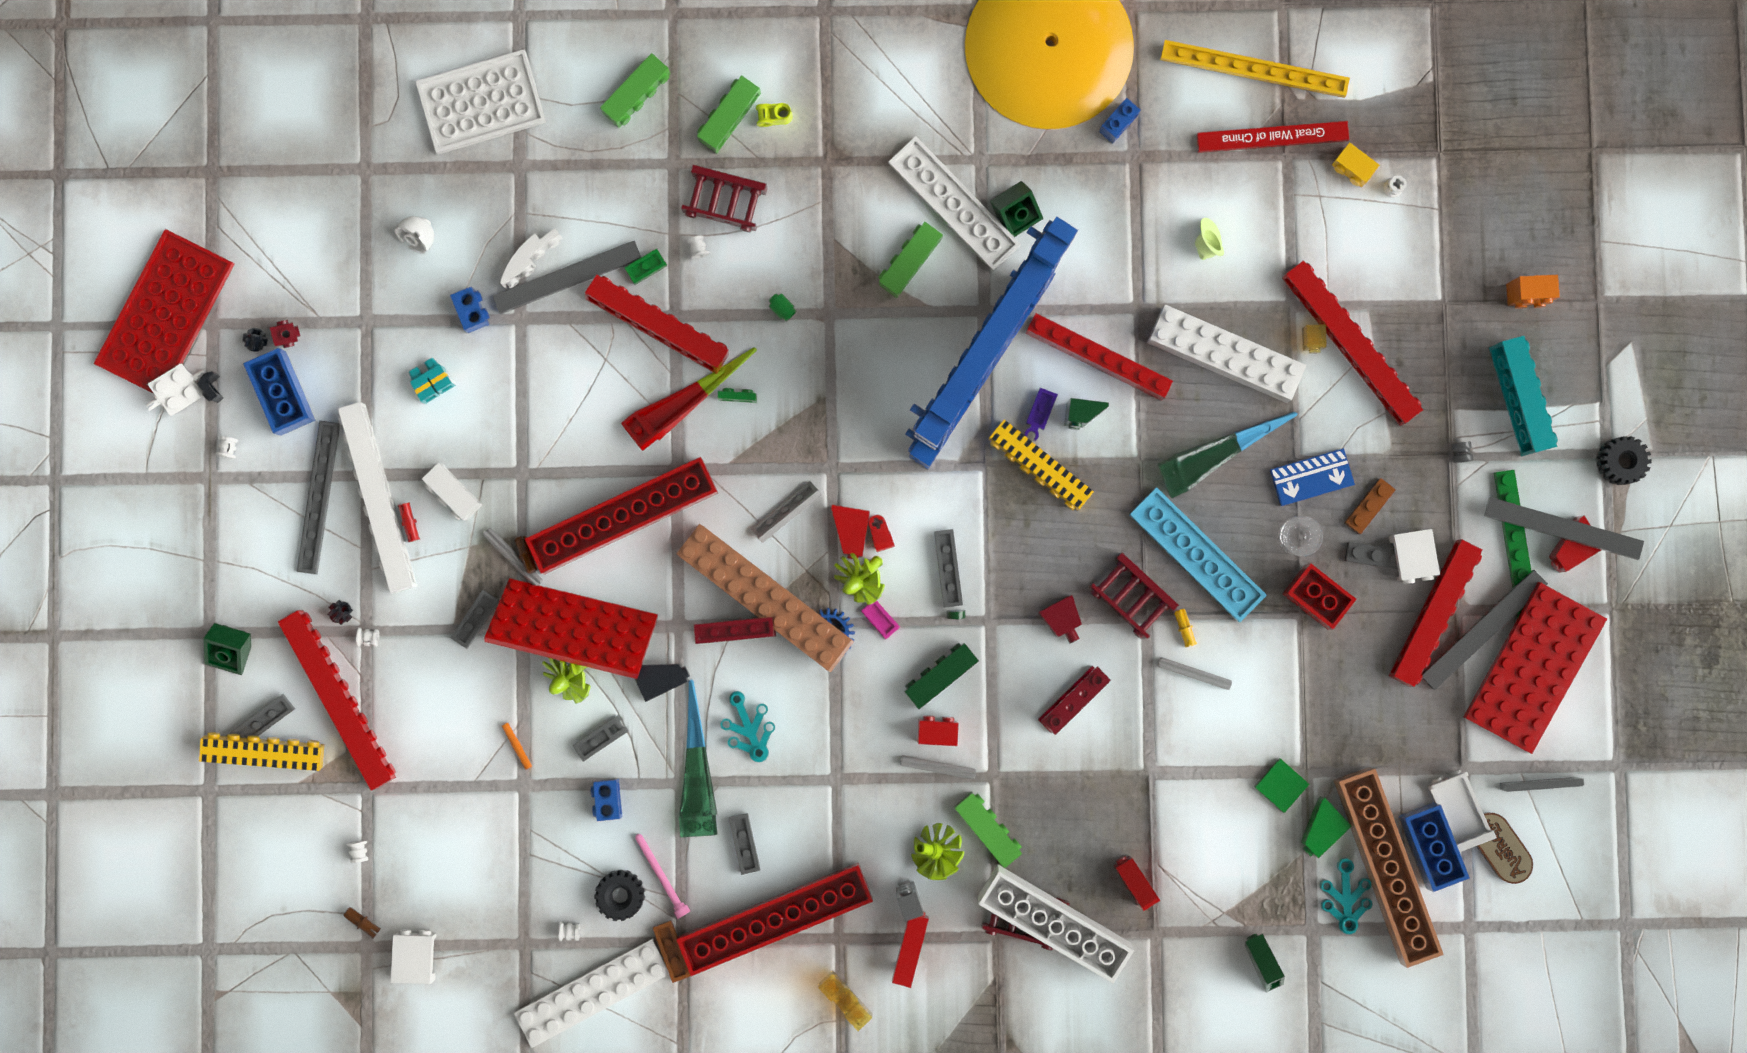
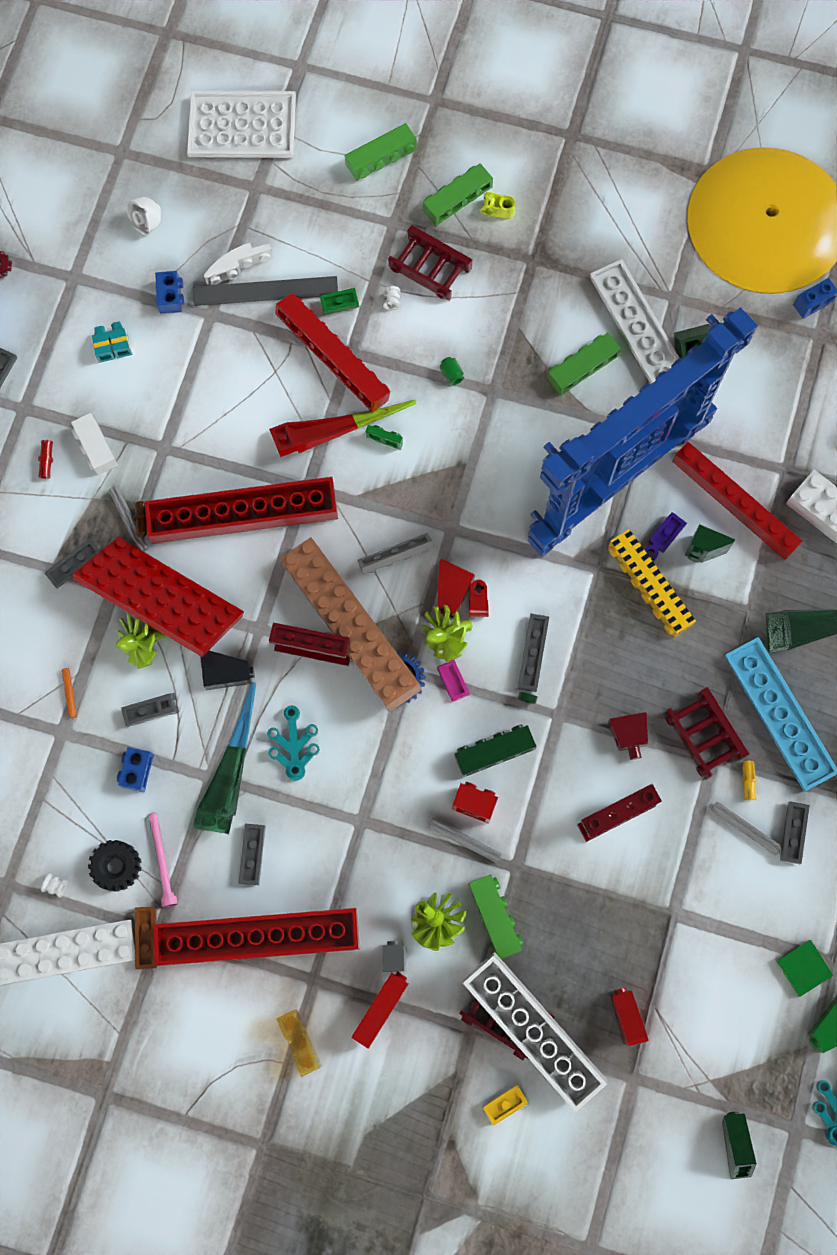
camera: 25 degrees right, 10 degrees down
(377, 498) = (25, 430): white brick -> none
(1048, 994) = (505, 1105): none -> yellow plate
(1240, 664) = (794, 832): none -> dark grey plate

